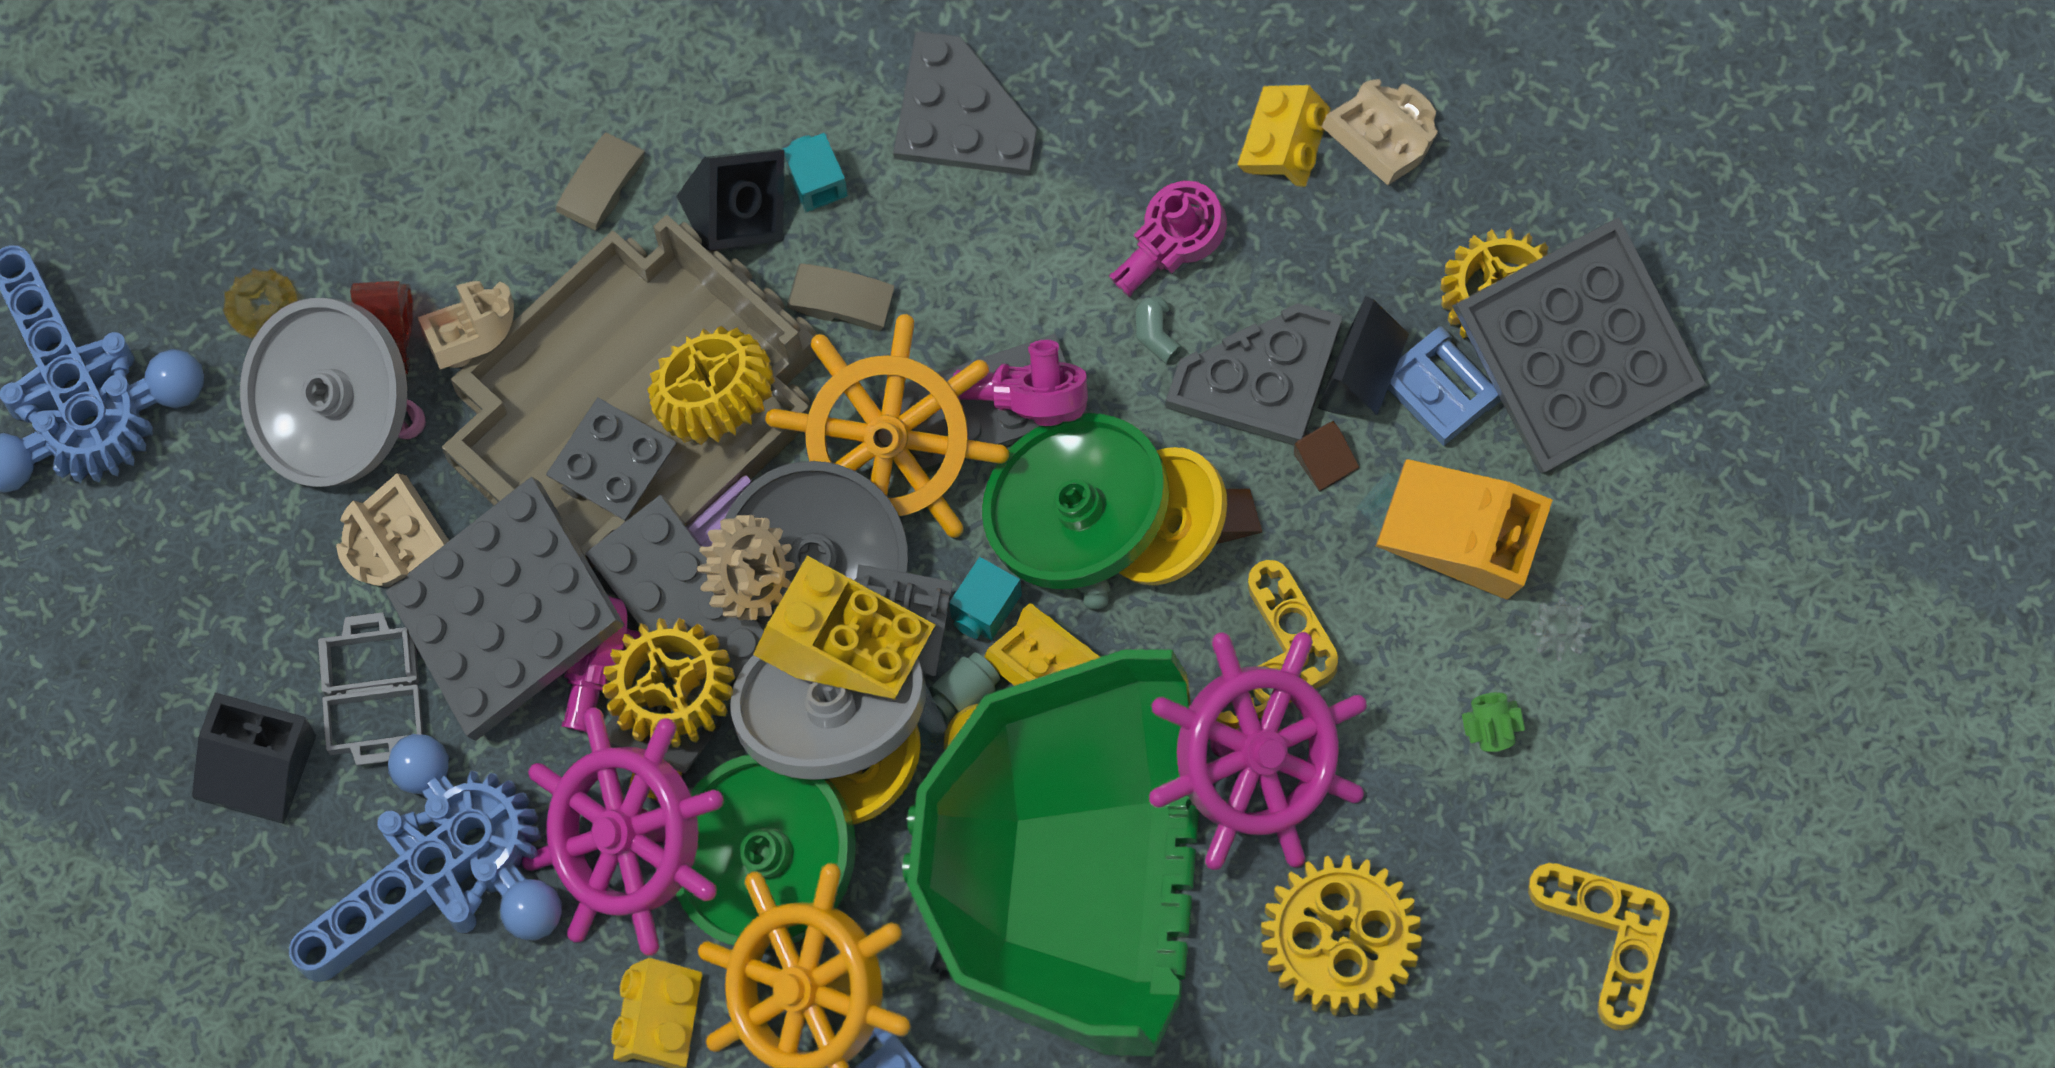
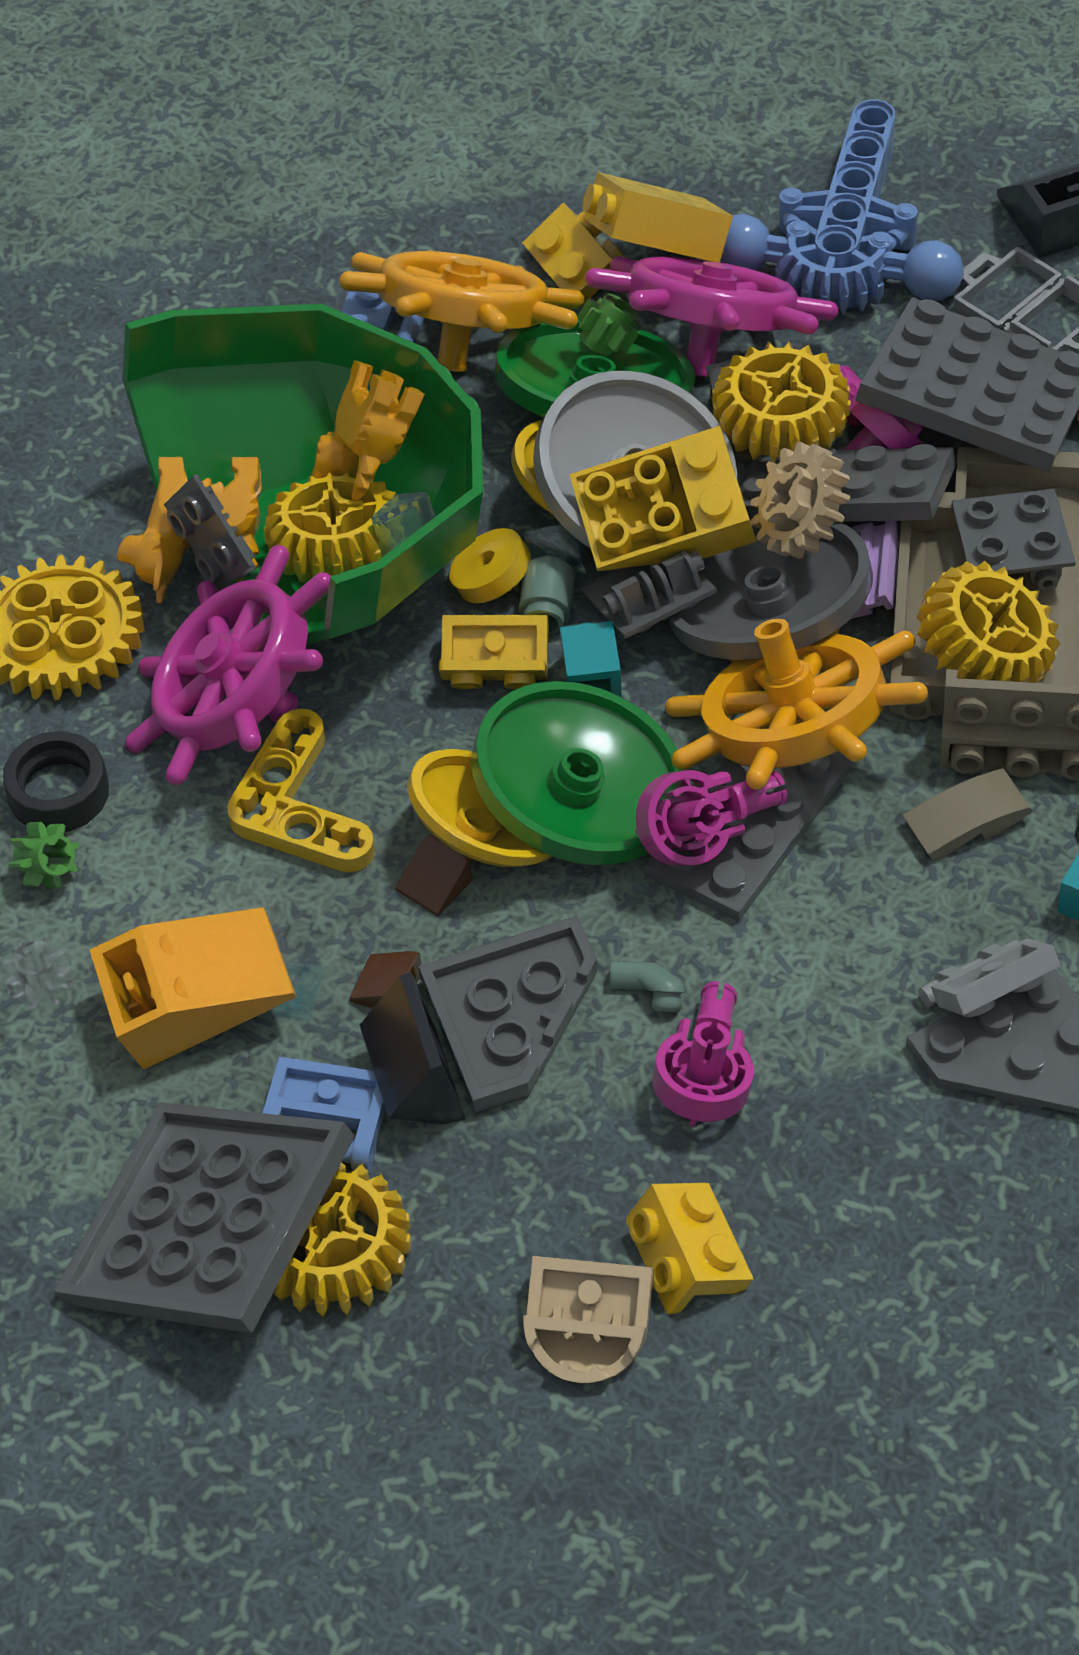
camera: 140 degrees right, 15 degrees down
(586, 952) = (657, 217): none -> yellow brick
(727, 880) = (608, 325): none -> bright green gear
(948, 145) = (994, 973): none -> light grey plate
(997, 872) = (367, 427): none -> light orange animal
(1033, 786) = (401, 518): none -> clear light blue slope
(1090, 823) = (326, 526): none -> yellow gear
(1172, 933) = (160, 550): none -> light orange animal
(1182, 870) = (197, 517): none -> dark grey hinge
(1447, 754) = (50, 749): none -> black tyre

